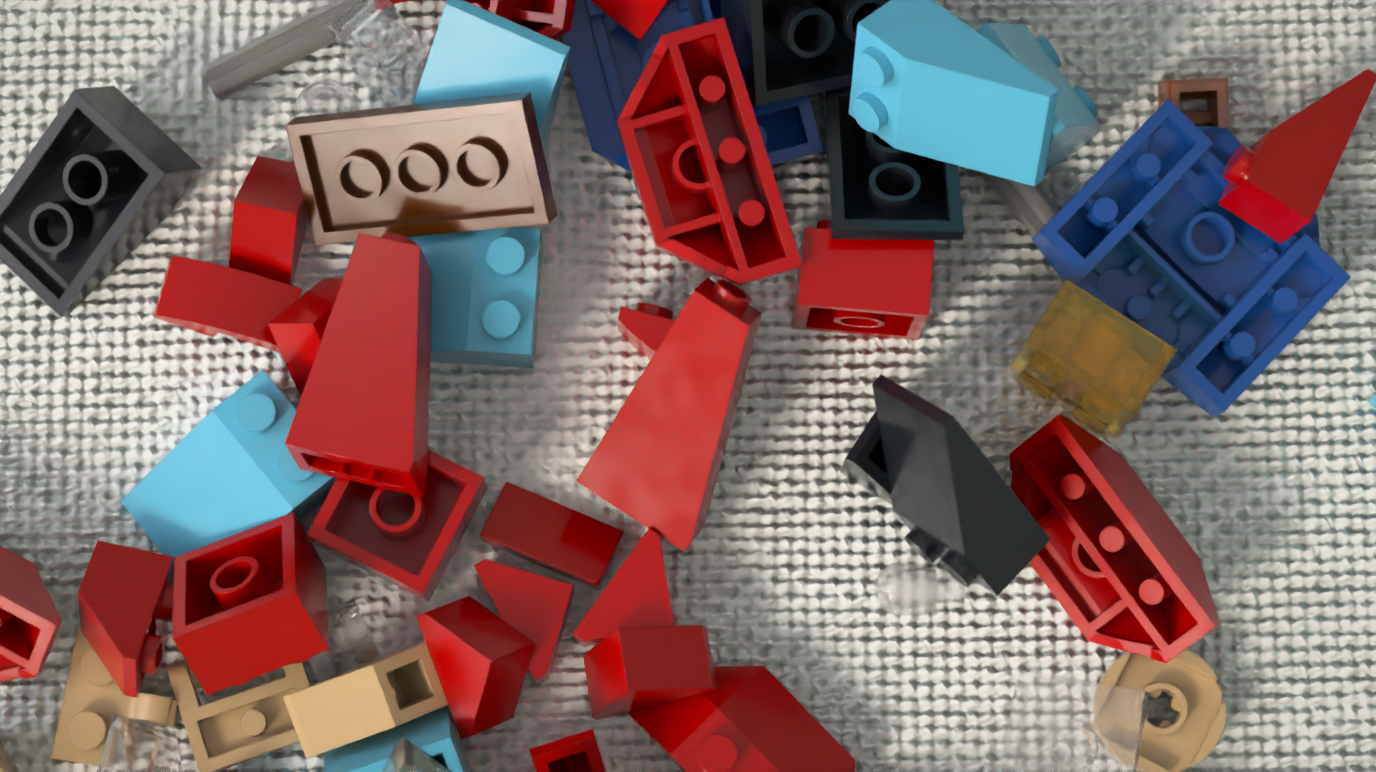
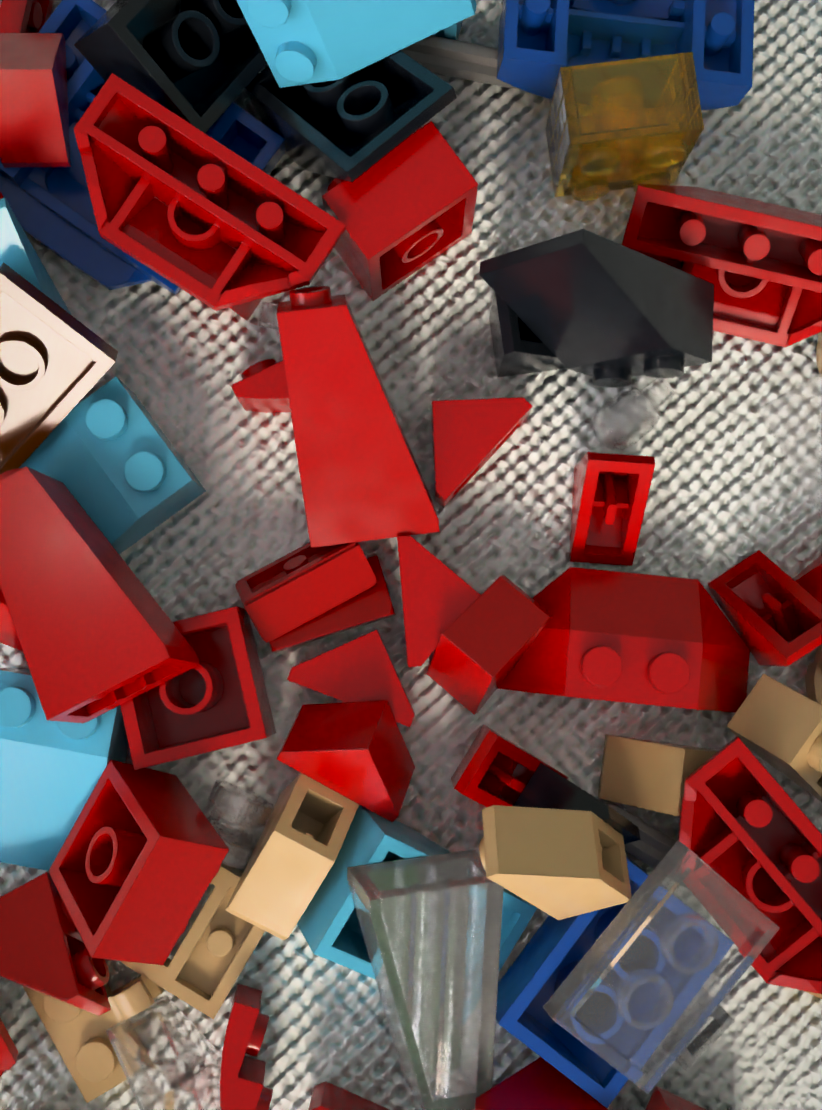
camera: 35 degrees left, 5 degrees up
(546, 506) = (303, 586): none -> red slope
(770, 500) = (468, 436): none -> red slope
(831, 647) = (608, 507): none -> red slope

